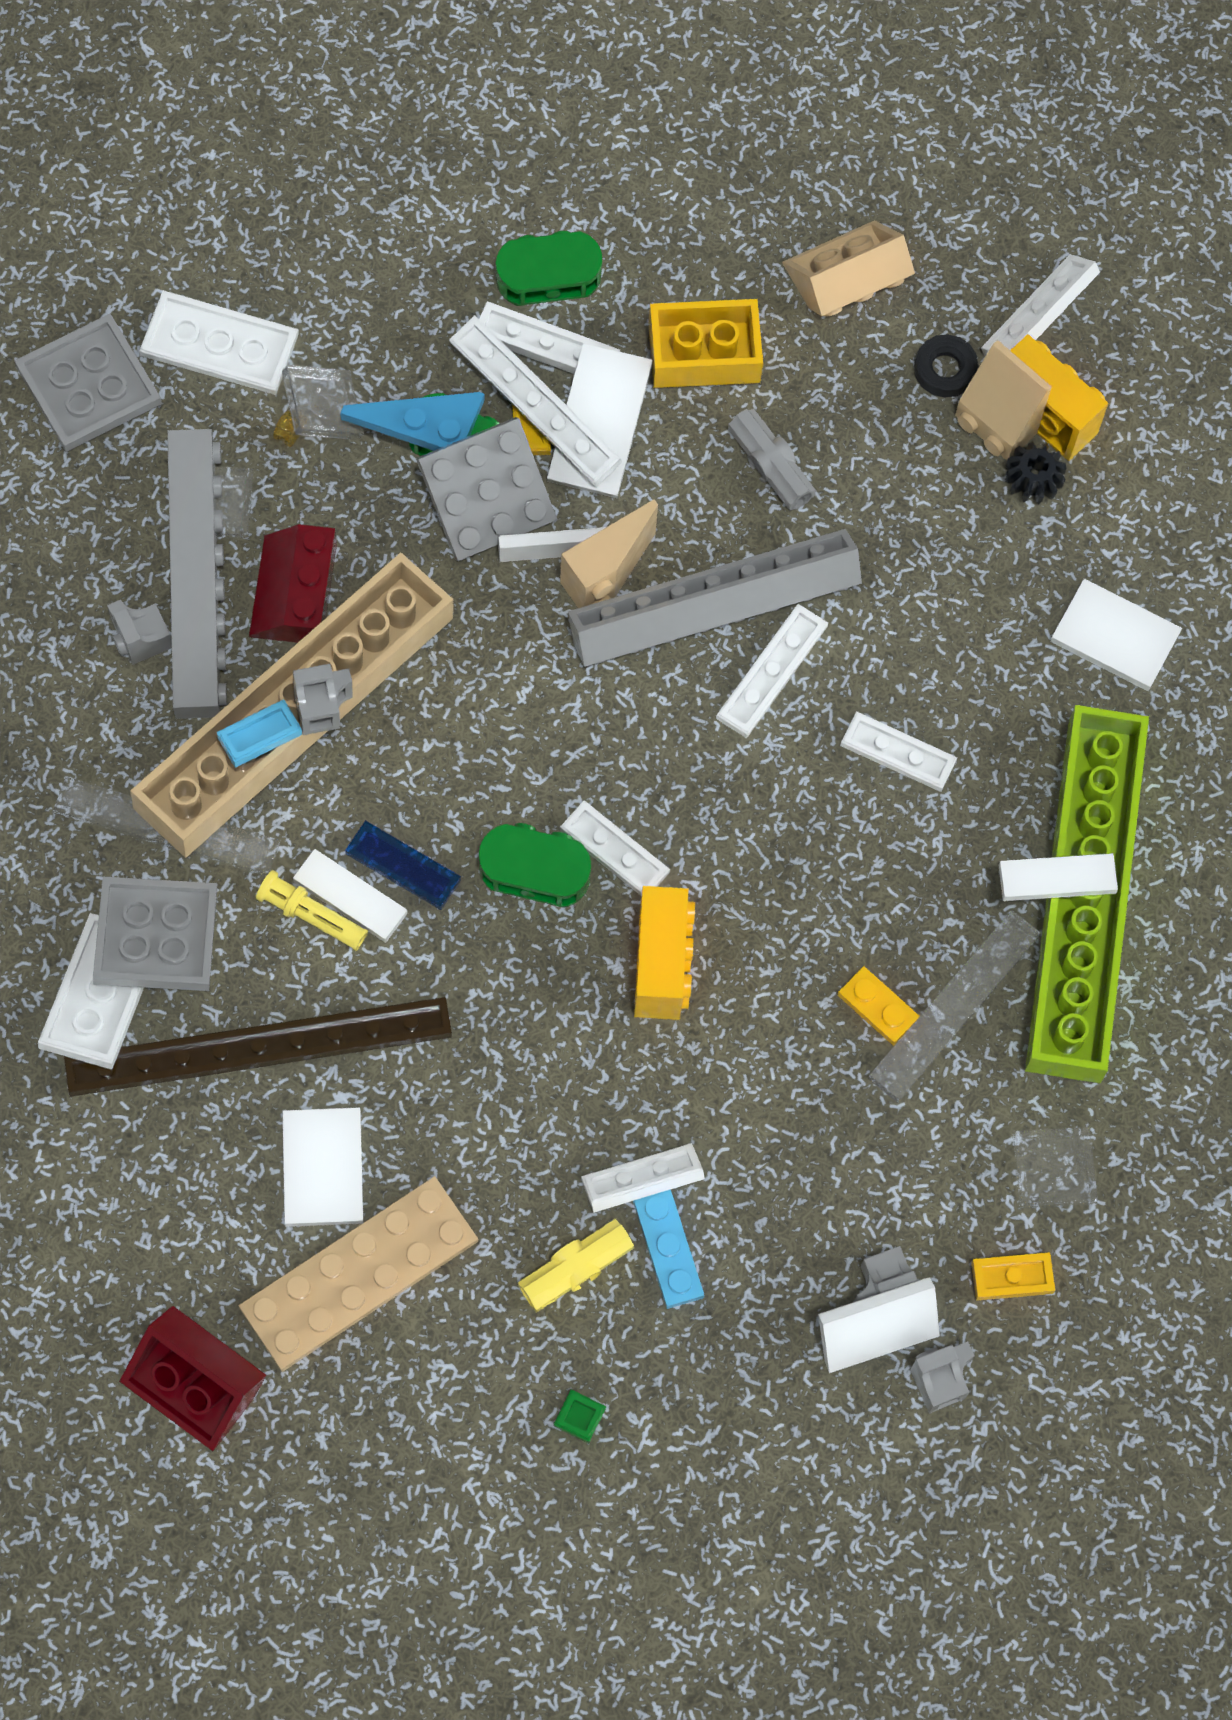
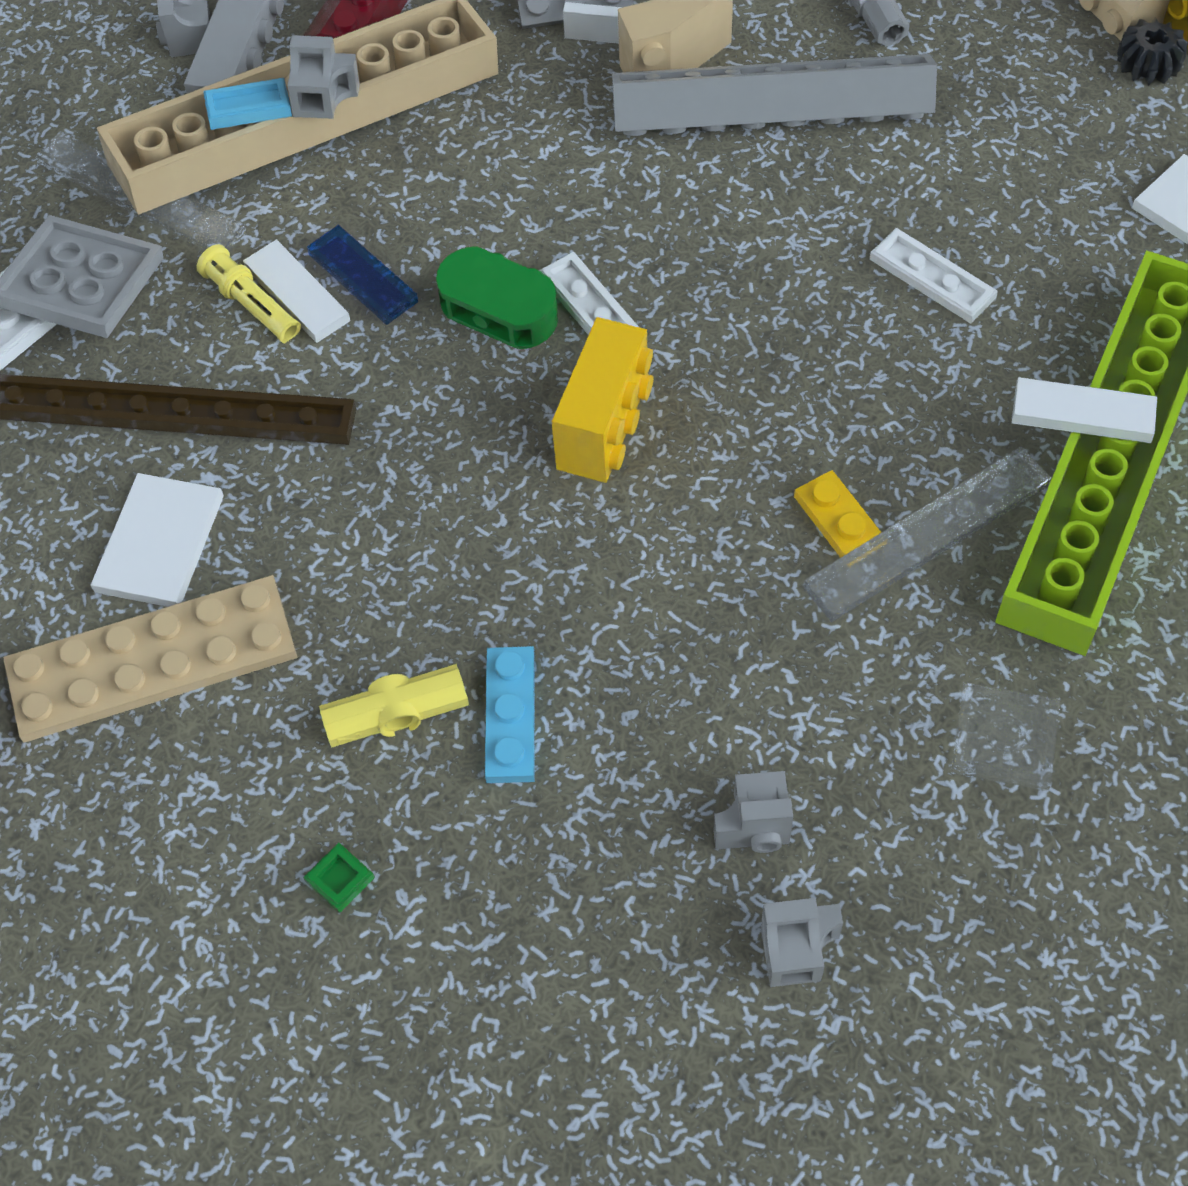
camera: 25 degrees right, 10 degrees down
(642, 1177) = (505, 630): white tile -> none
(772, 671) = (814, 177): white tile -> none
(879, 1325) = (732, 856): white tile -> none
(1013, 1276) = (920, 847): yellow plate -> none

